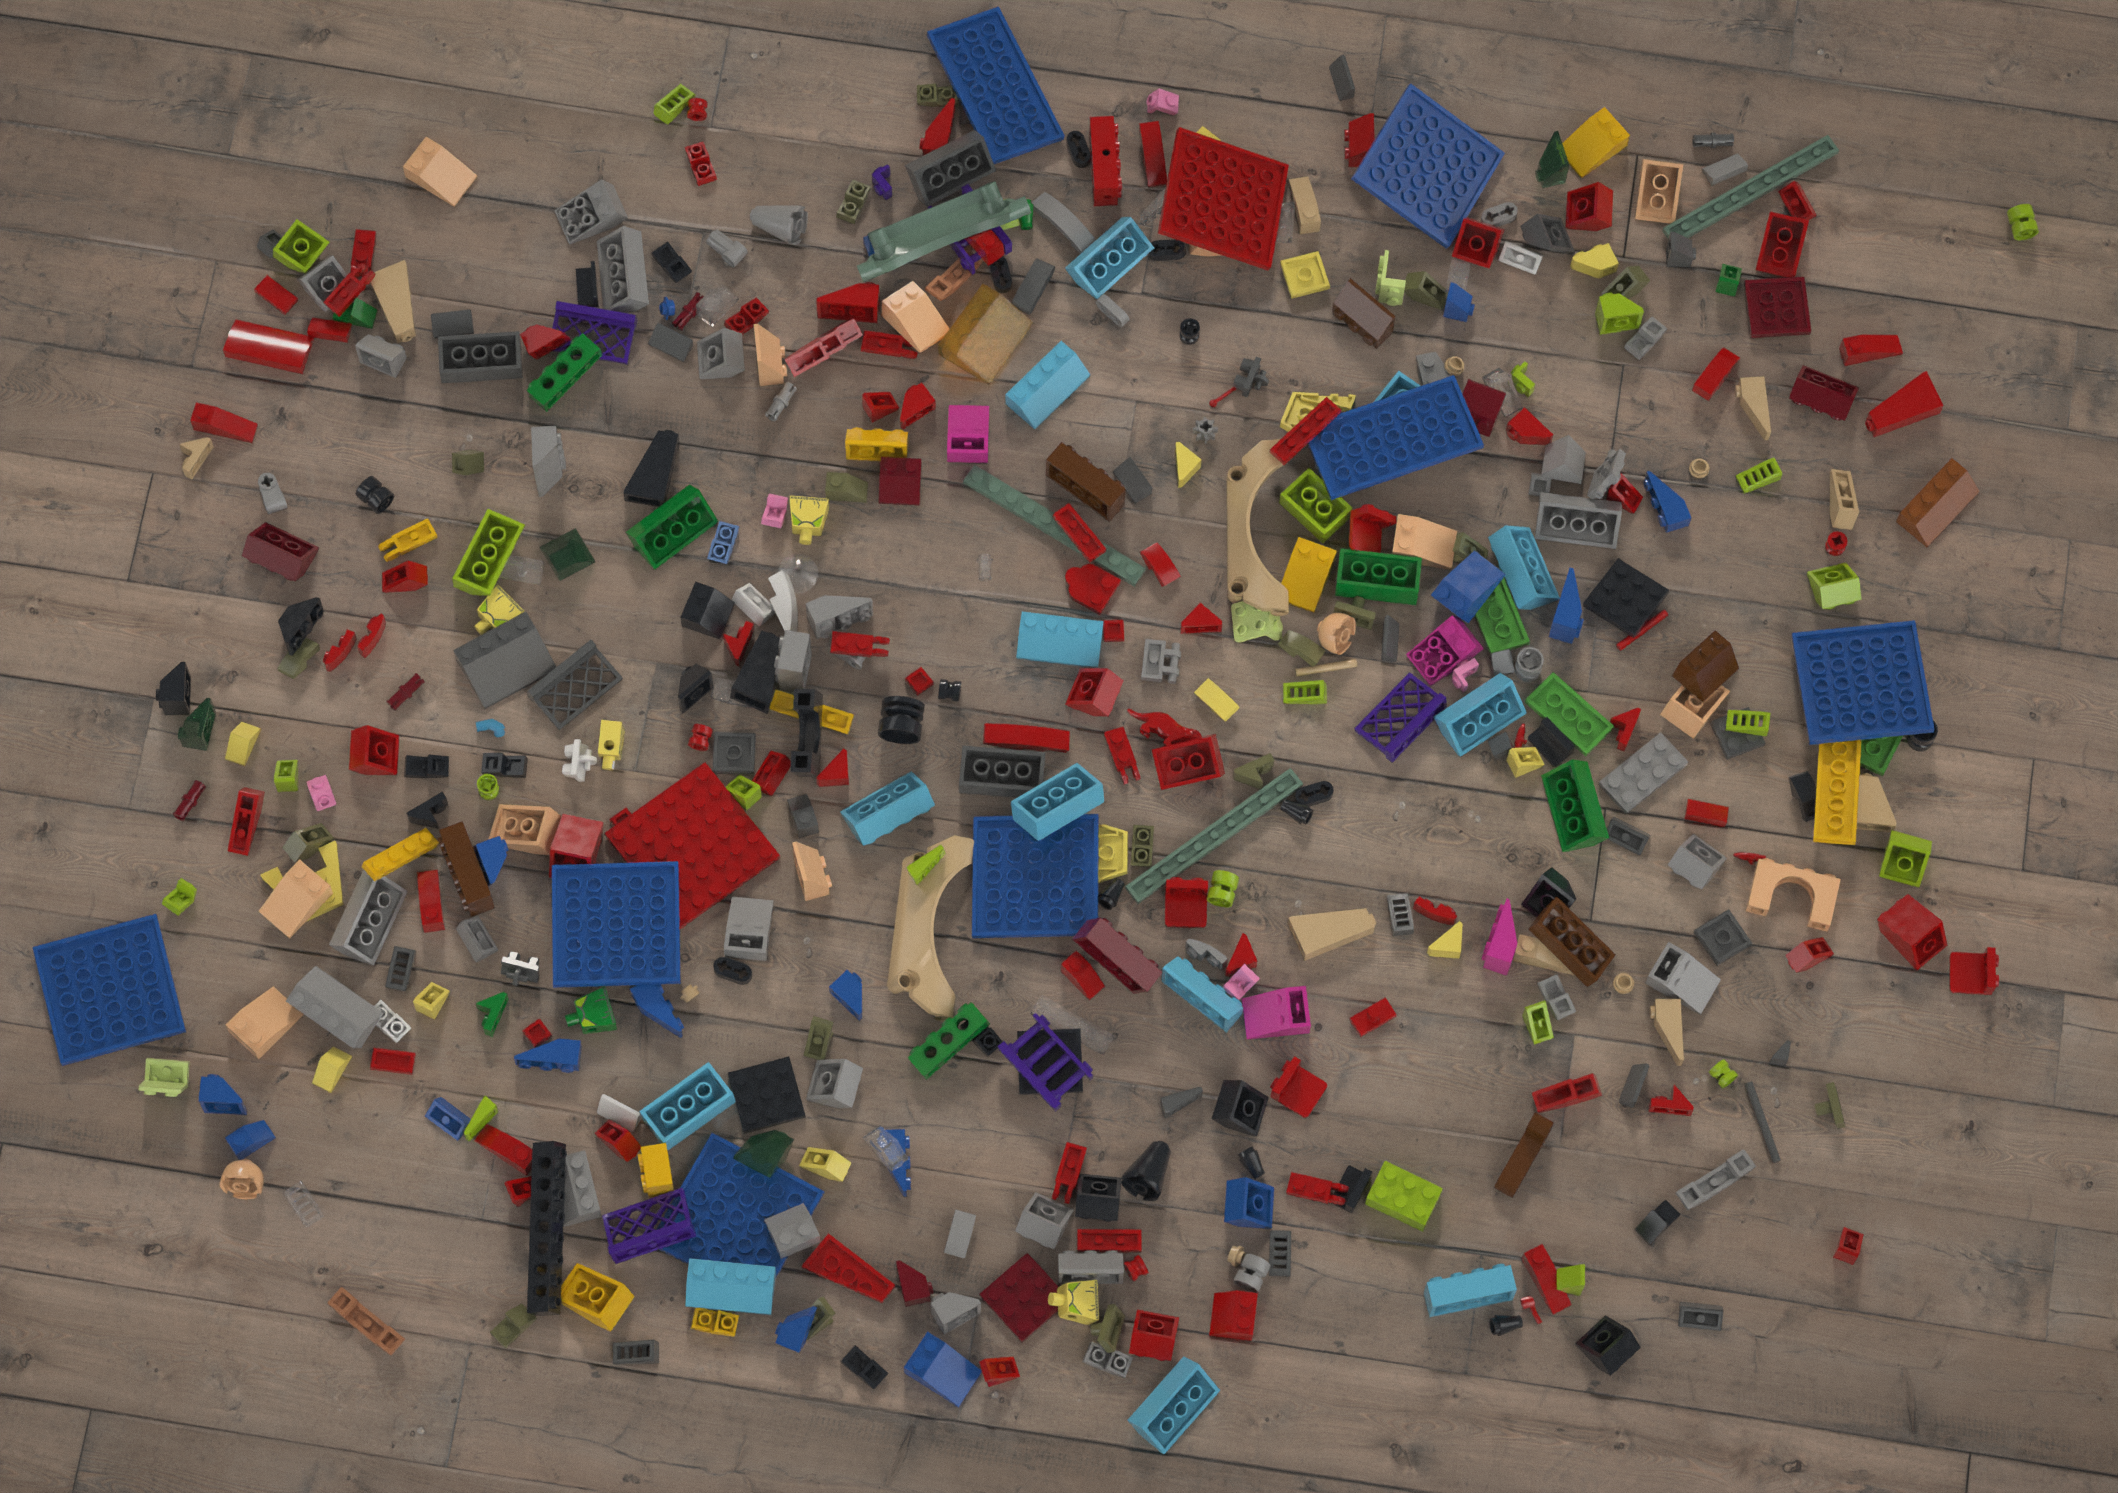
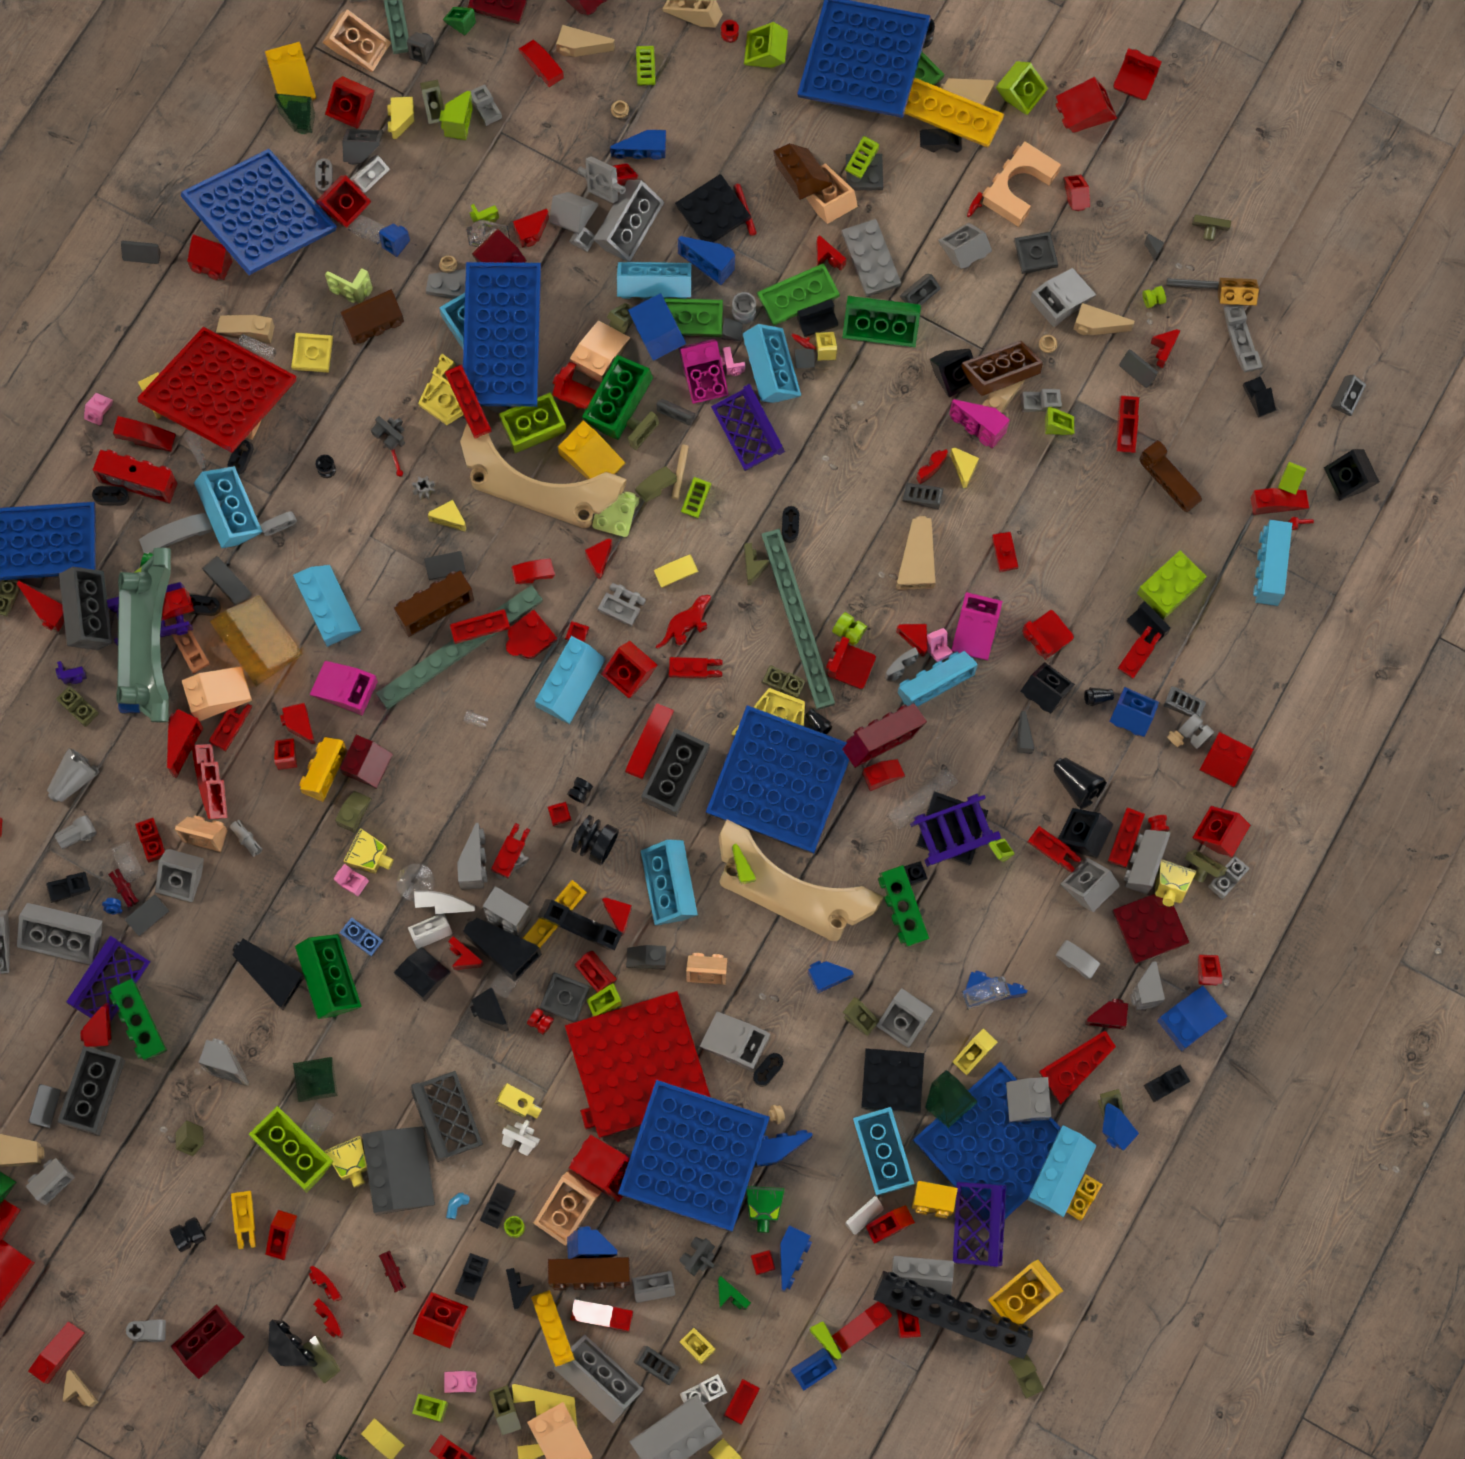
camera: 70 degrees left, 5 degrees up
(587, 286) = (59, 970): black panel -> none
(654, 1352) = (1086, 1257): dark grey slope -> none
(1043, 1115) = (1001, 849): none -> lime slope
(1057, 801) = (726, 733): medium azure brick -> none
(1174, 1404) = (1286, 837): medium azure slope -> none
(1188, 762) = (726, 613): red slope -> none
(1299, 812) = (801, 543): black cone -> none
(1336, 631) = (653, 451): light nougat cylinder -> none
(1425, 289) = (369, 259): olive slope -> none
(1504, 1323) = (1306, 548): black cone -> none
(1706, 813) = (924, 222): red slope -> none
(1766, 1157) = (1238, 291): none -> pearl gold brick
(1848, 1246) = (1331, 259): red slope -> none

